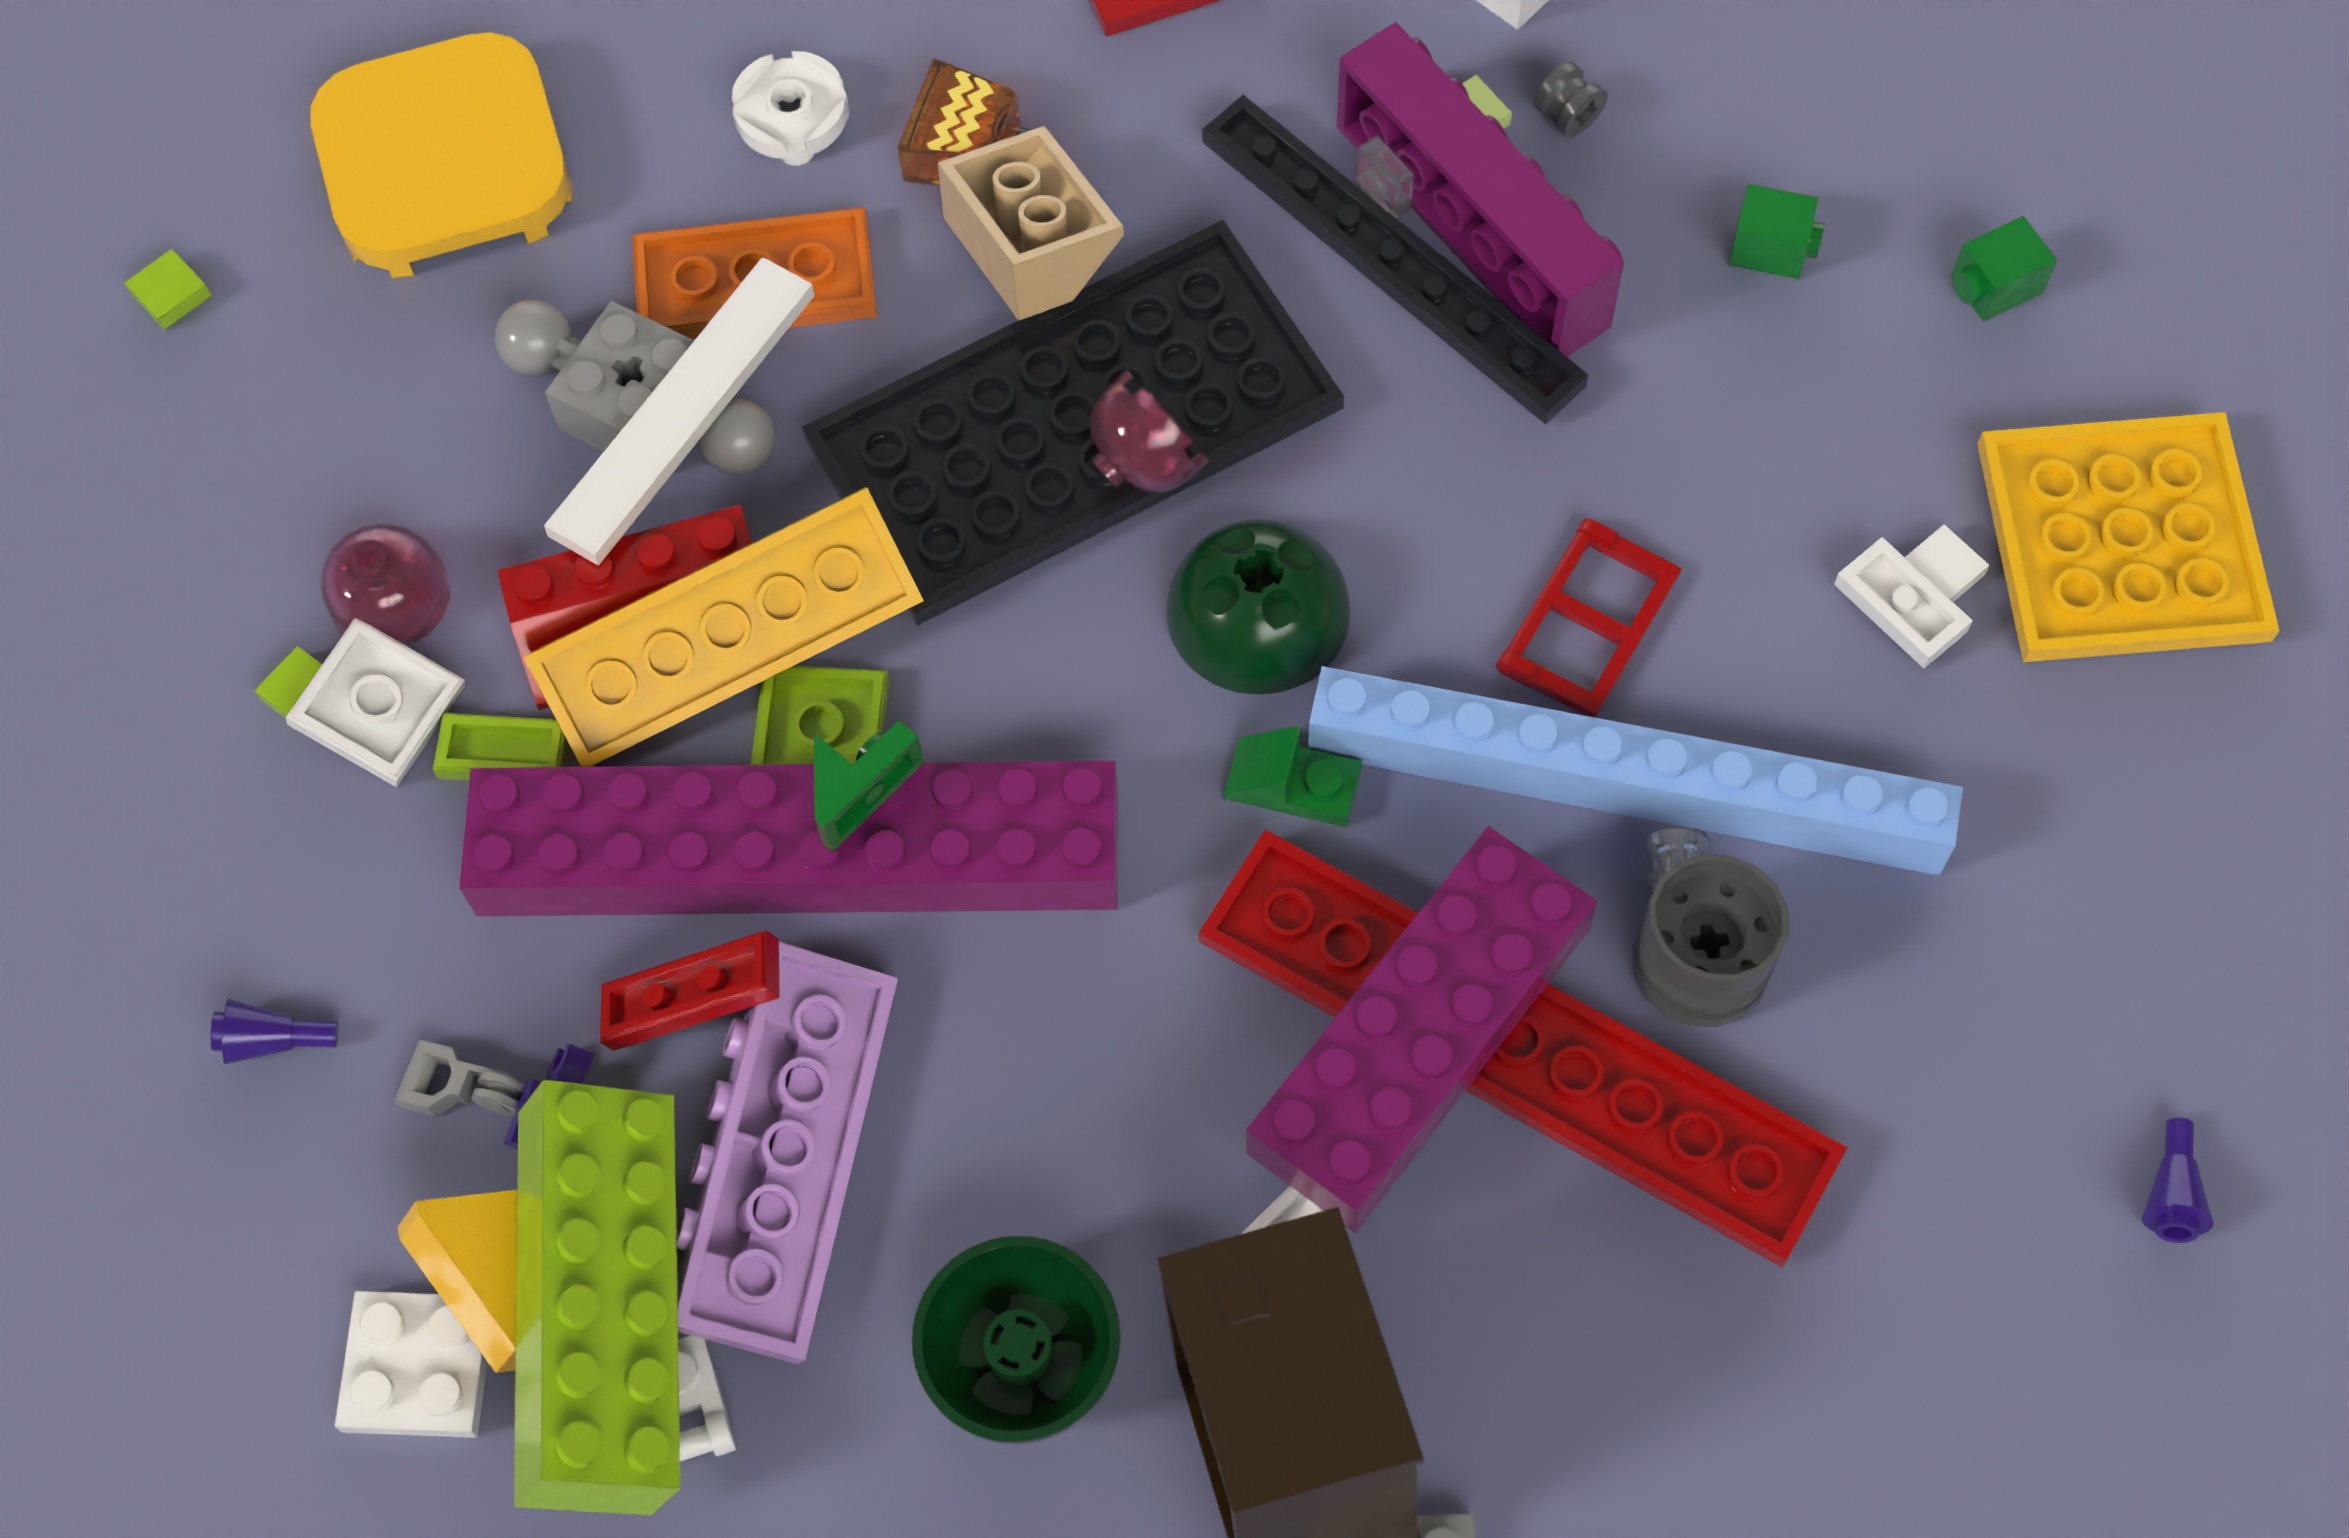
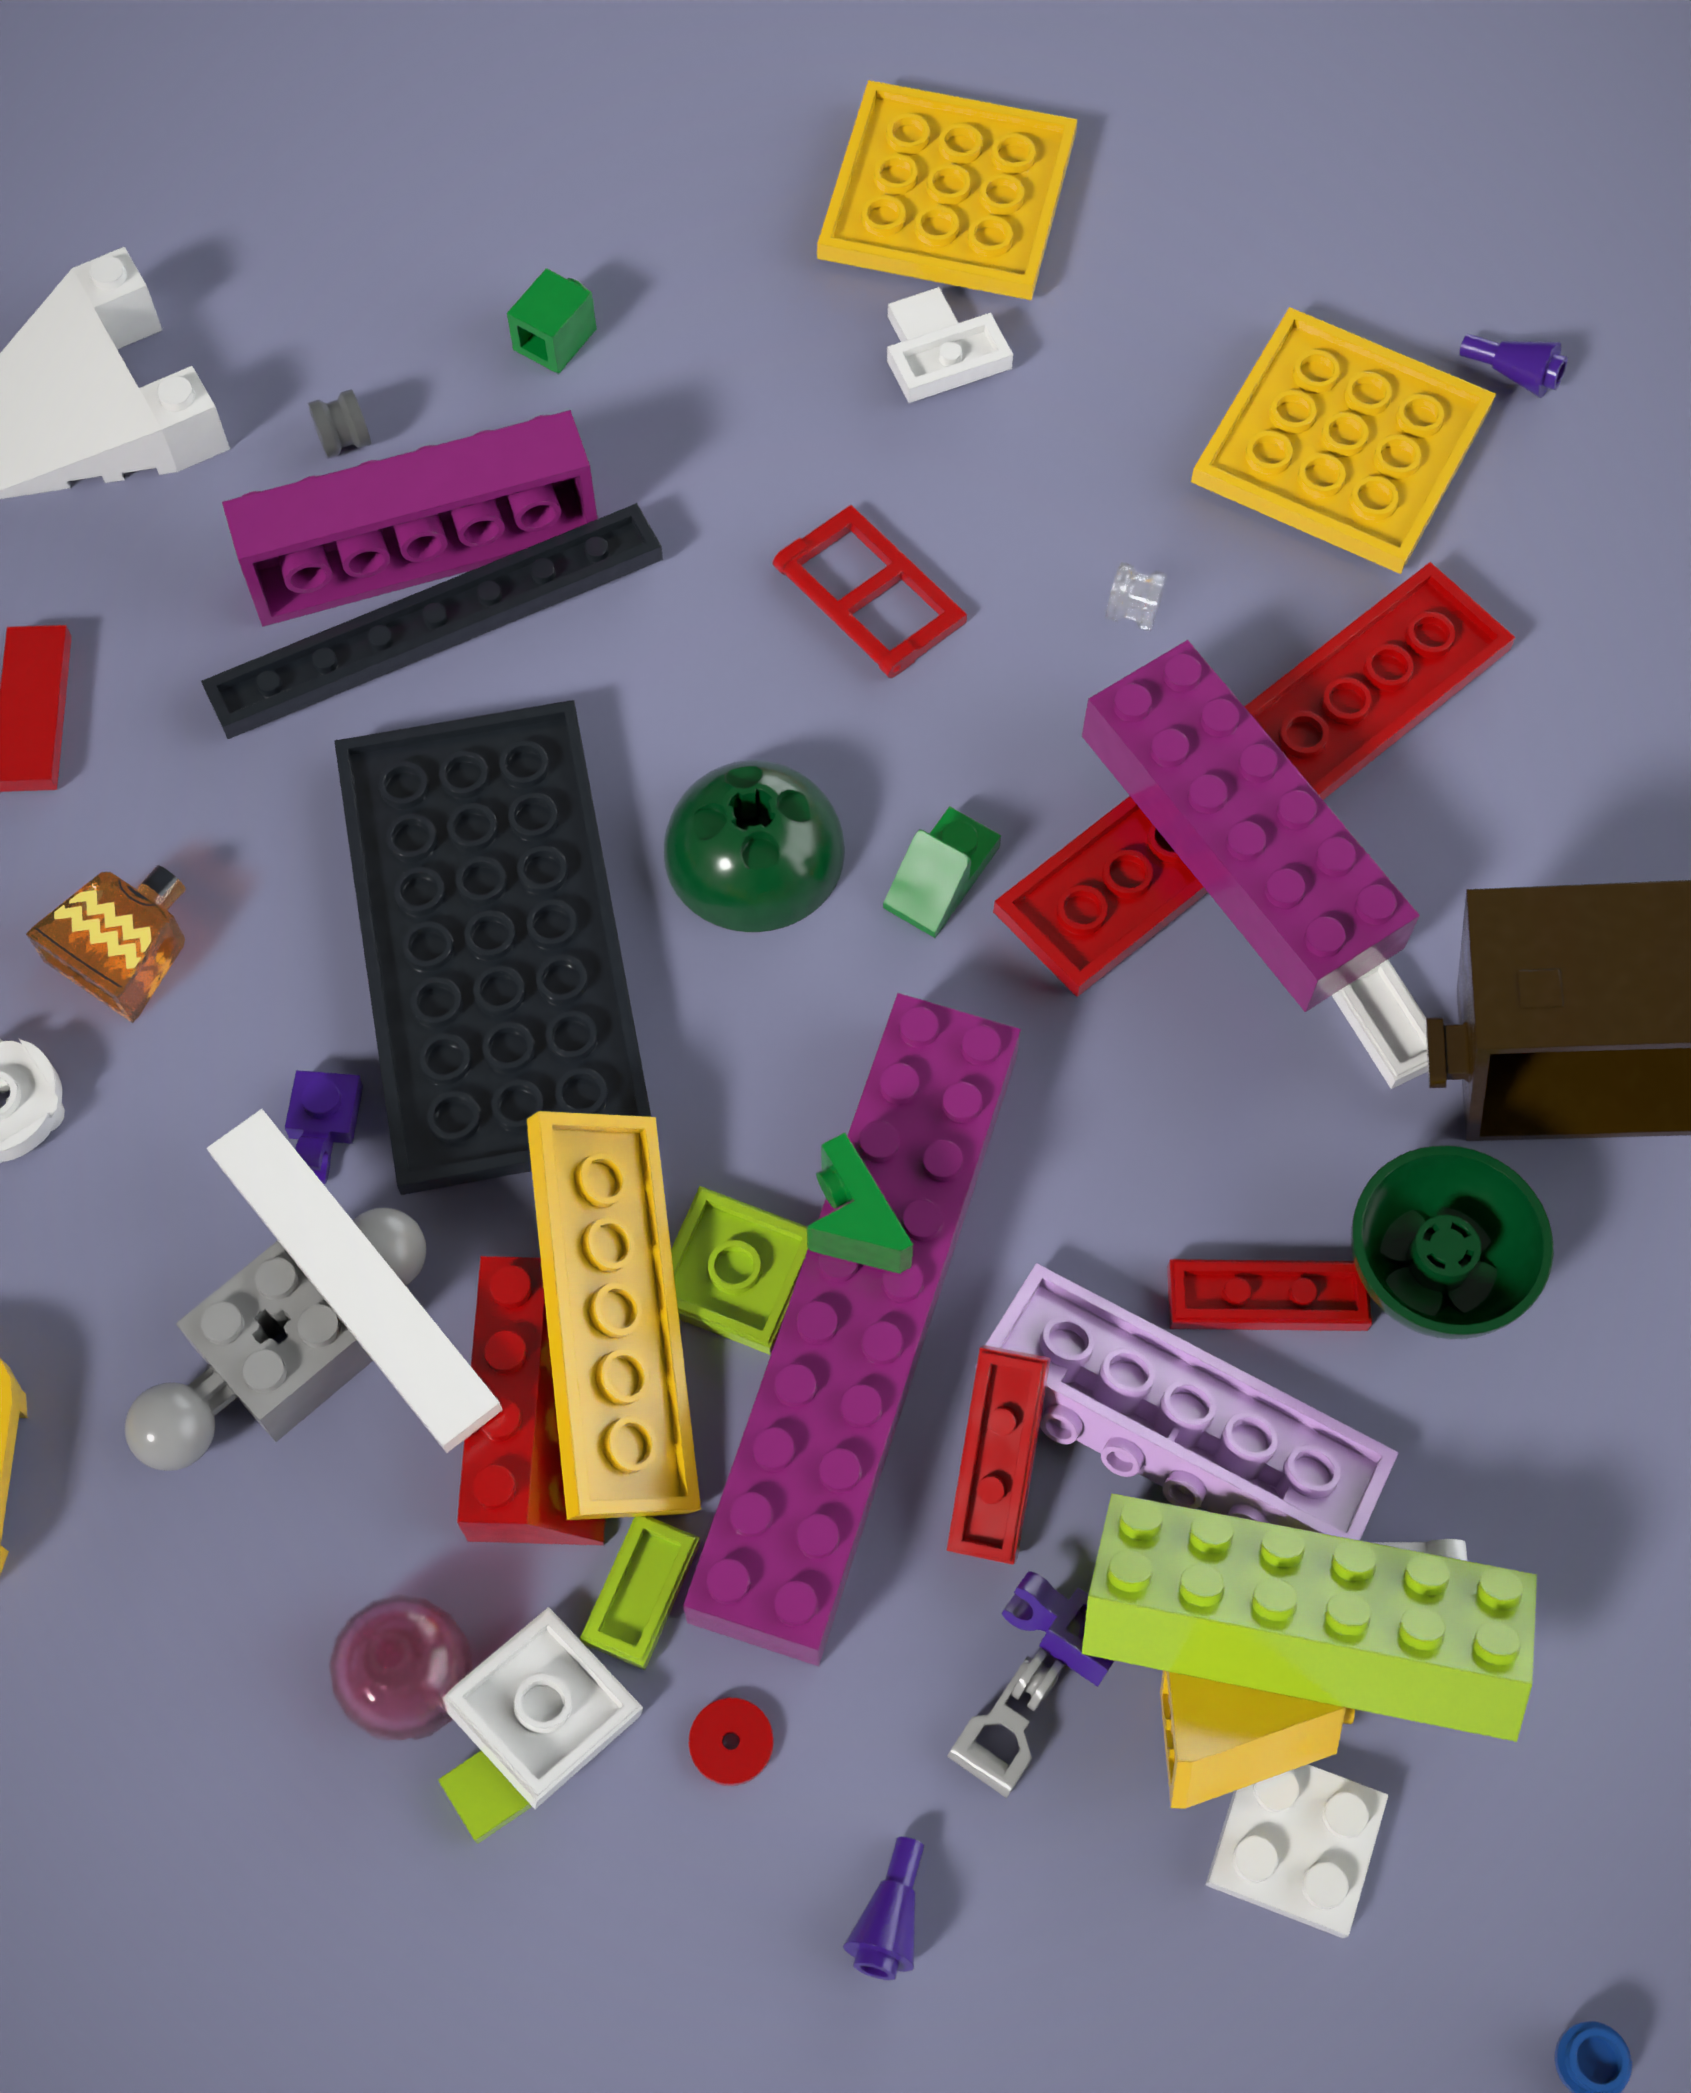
camera: 75 degrees left, 0 degrees up
(394, 884) = (735, 1765): none -> red wheel
(694, 270) = (172, 1205): orange tile -> none
(860, 349) = (320, 1113): none -> dark purple plate
(933, 1184) = (1267, 1295): none -> red tile
(1028, 219) = (265, 899): tan slope -> none
(1140, 440) = (566, 864): clear pink cylinder -> none
(1384, 177) = (349, 593): clear plate -> none
(1636, 771) = (1033, 608): light blue brick -> none
(1710, 940) = (1228, 585): dark grey wheel -> none
(1982, 1024) = (1343, 439): none -> yellow plate
(2002, 268) = (665, 175): green brick -> none

